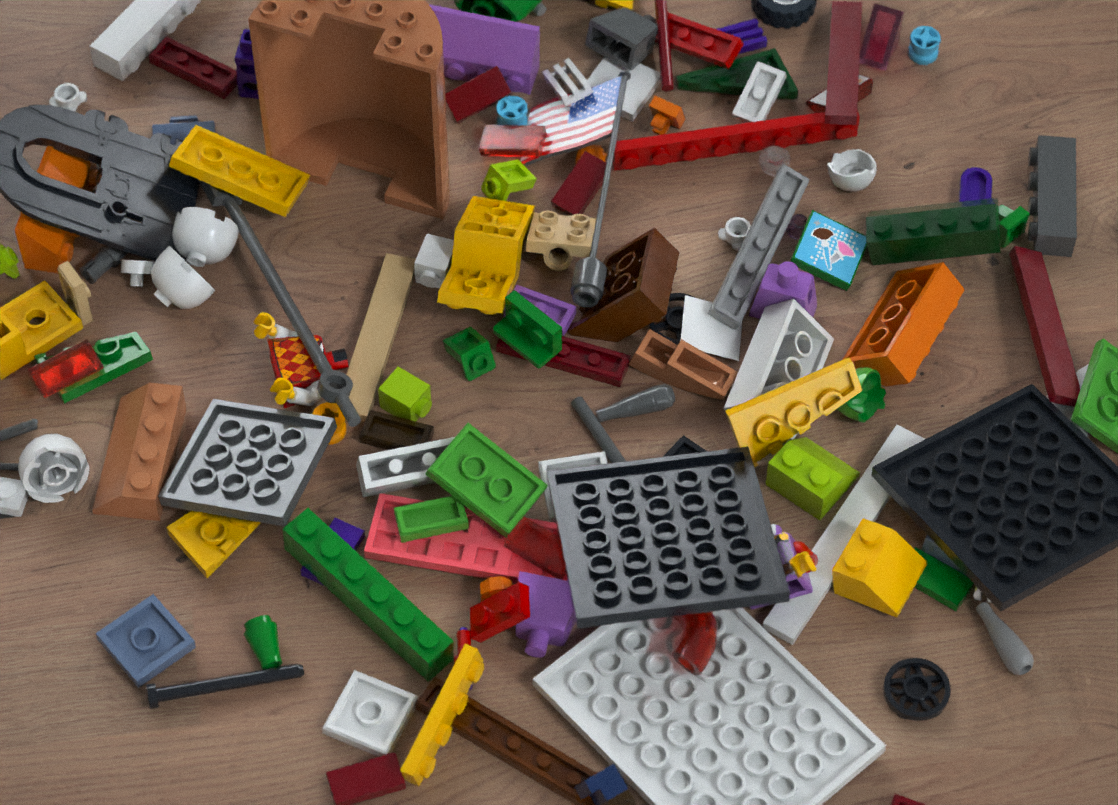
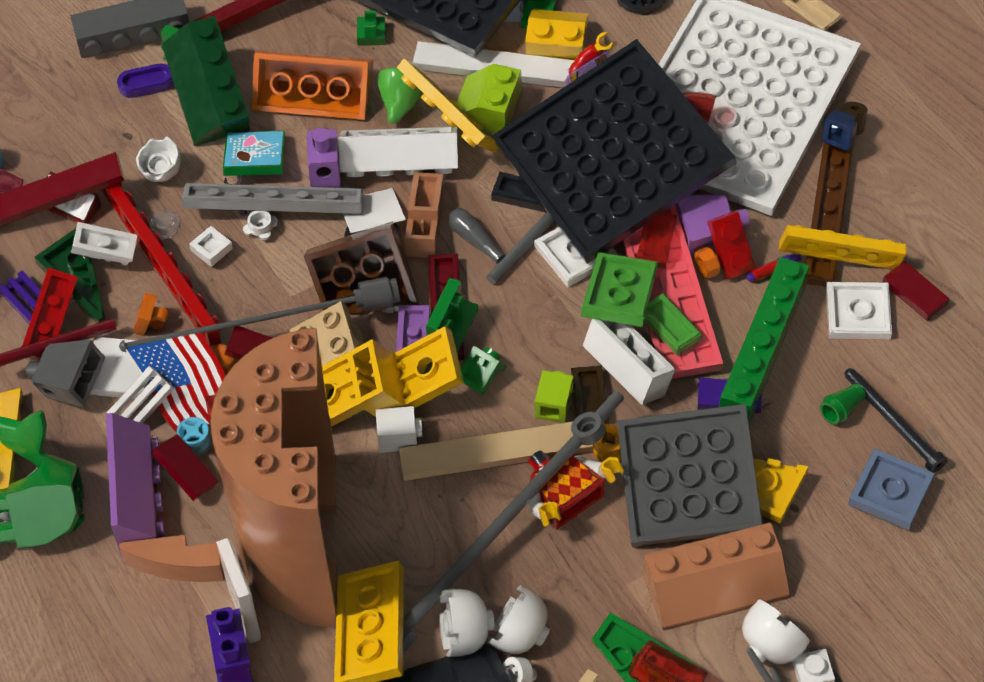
camera: 110 degrees left, 0 degrees up
(727, 185) = (211, 246): none -> white plate
(963, 404) = (371, 29): none -> green tile

